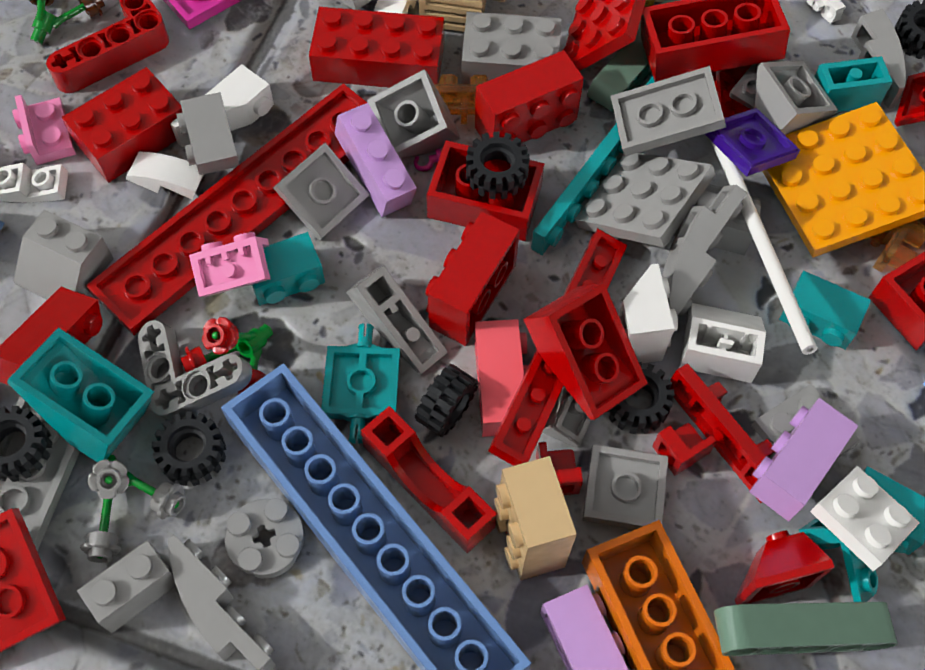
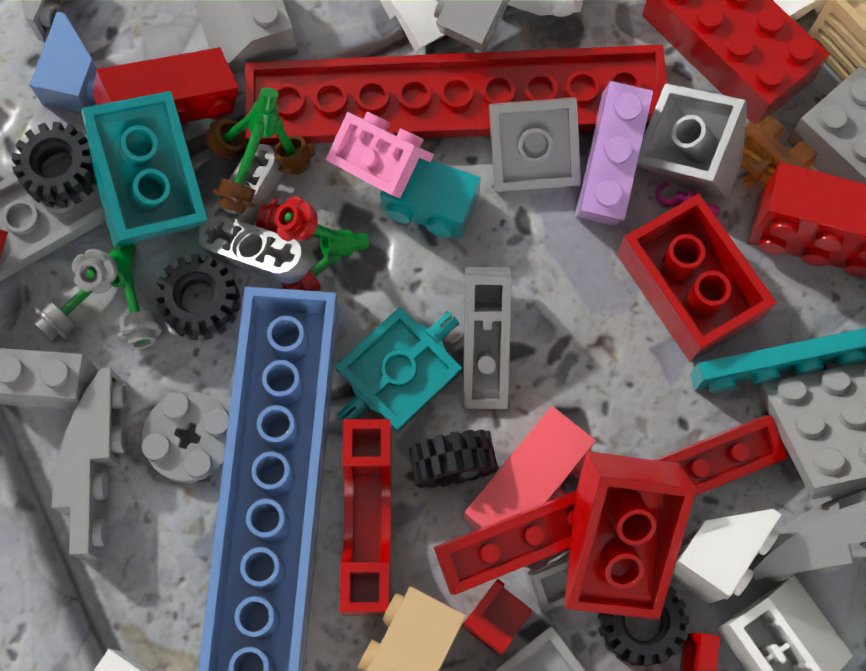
camera: 45 degrees right, 10 degrees up
(117, 339) = (228, 139): none -> plant
(472, 277) = (593, 358): red brick -> none
(500, 149) = (735, 245): black tyre -> none

